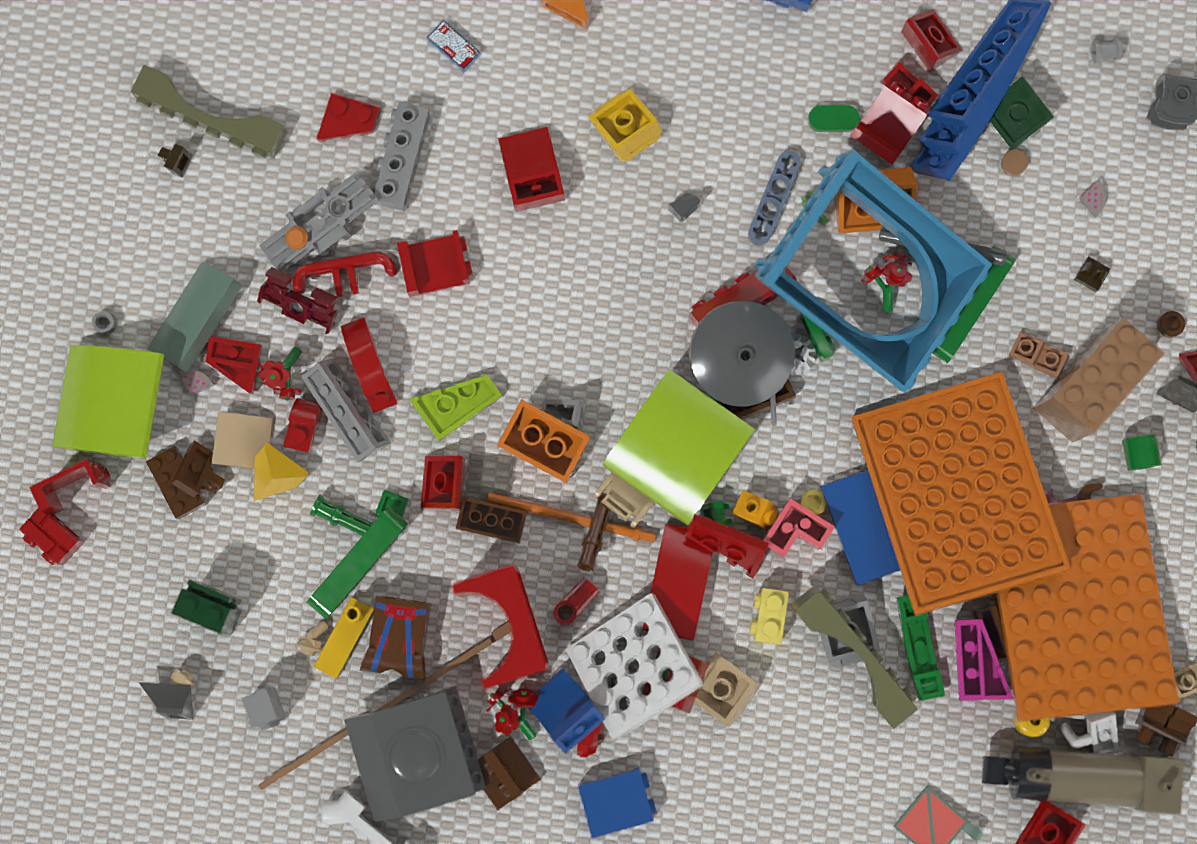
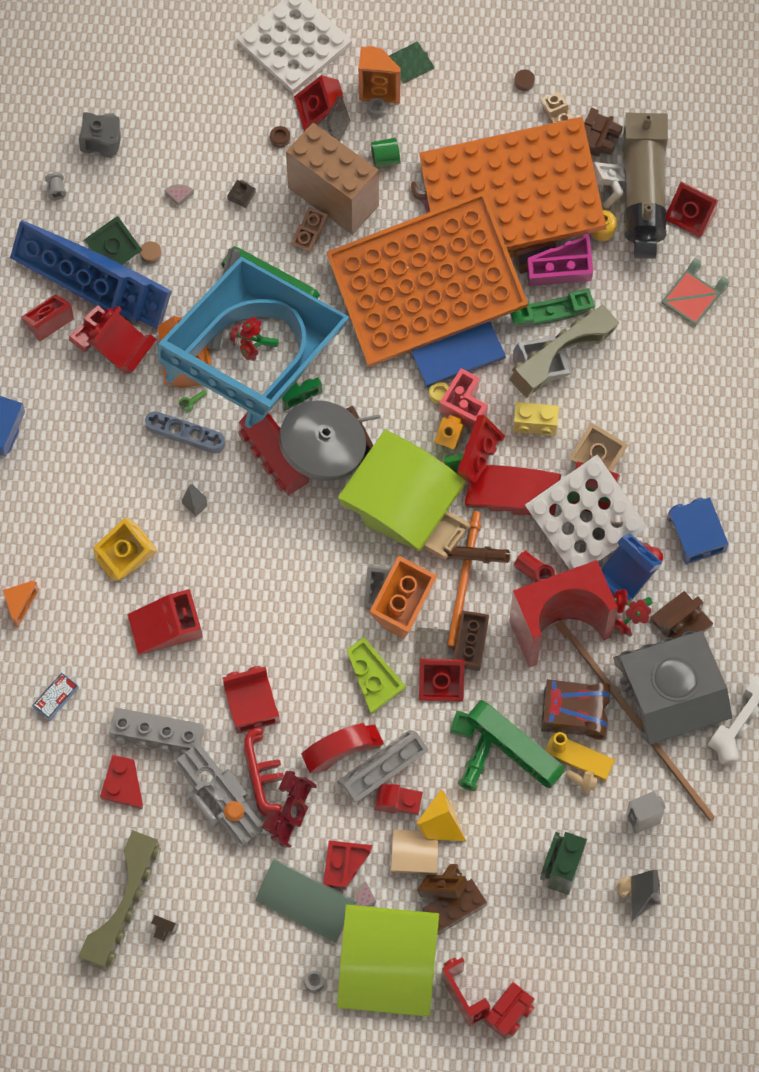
camera: 95 degrees left, 15 degrees down
(279, 375) = (356, 819): red plant -> none
(833, 118) = (115, 389): green tile -> none

